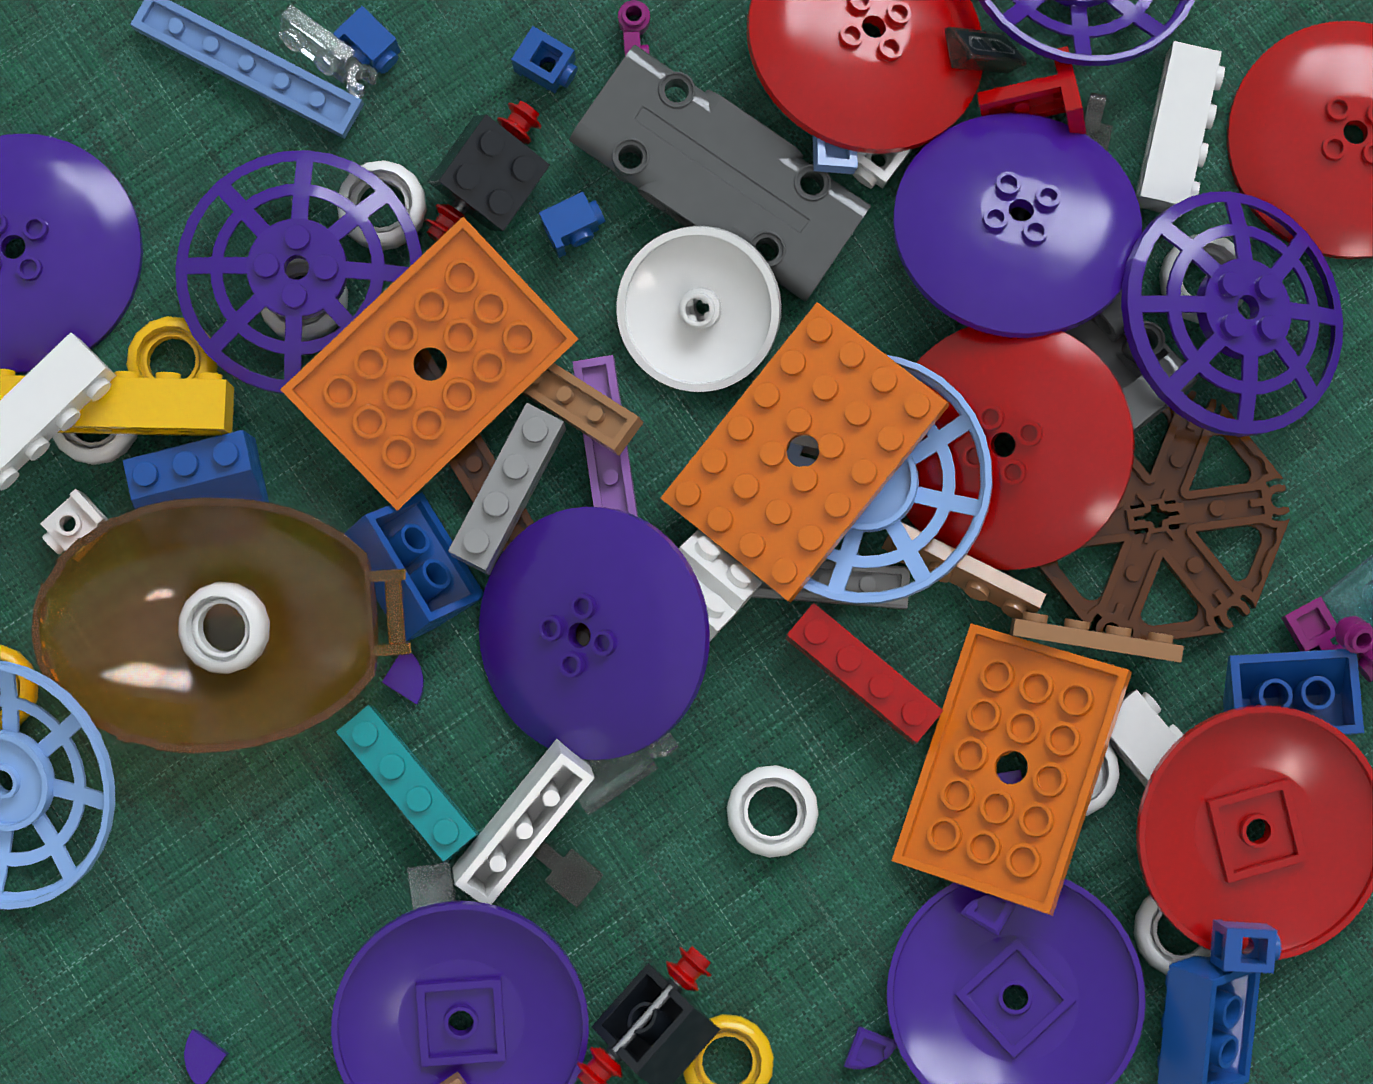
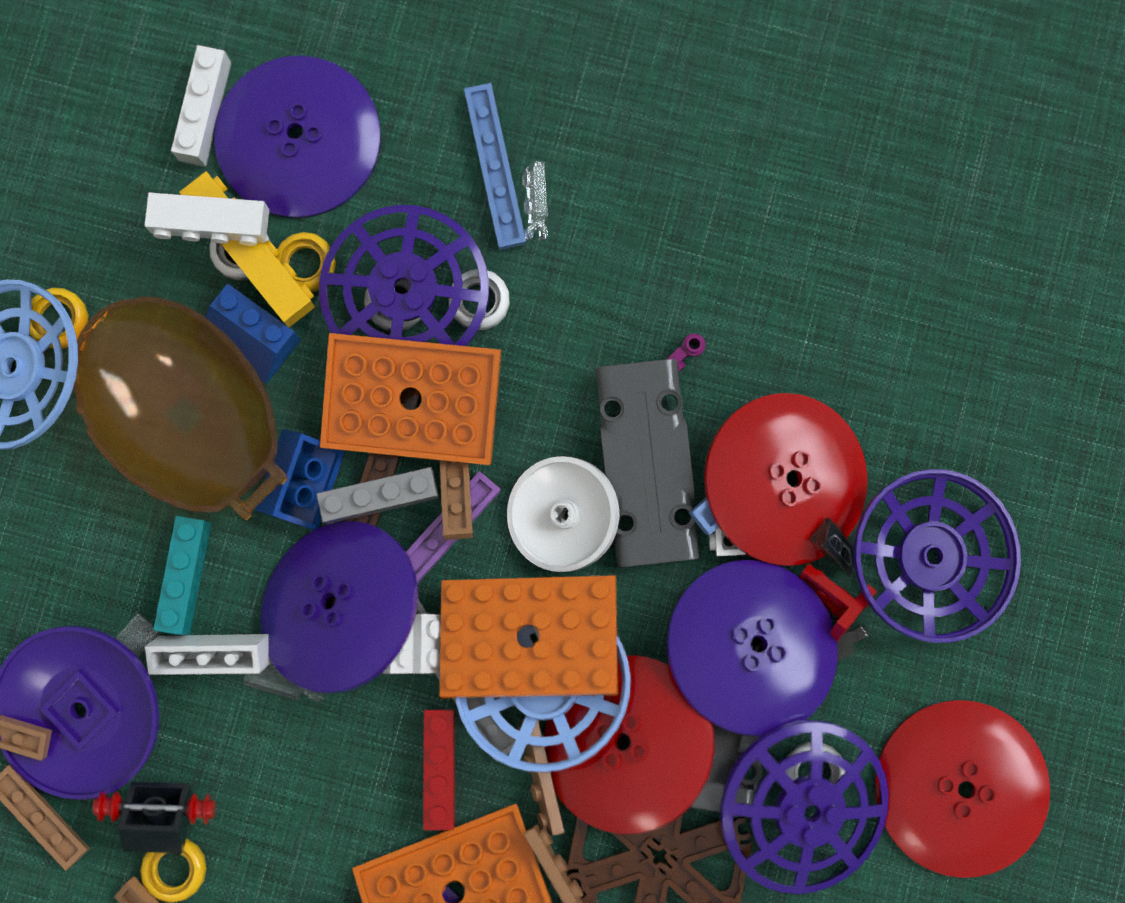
camera: 50 degrees right, 0 degrees up
(86, 517) = (185, 291): white brick -> none
(193, 637) = (165, 400): white wheel -> none
(370, 40) = (560, 218): blue brick -> none
(406, 677) = (238, 527): dark purple tile -> none
(488, 171) = (542, 340): black brick -> none
(542, 48) = (632, 309): blue brick -> none
(570, 874) = (205, 702): clear smoke plate -> none
(571, 222) = (553, 406): blue brick -> none
(805, 803) = (310, 798): white wheel -> none
(1179, 126) = (885, 689): white brick -> none

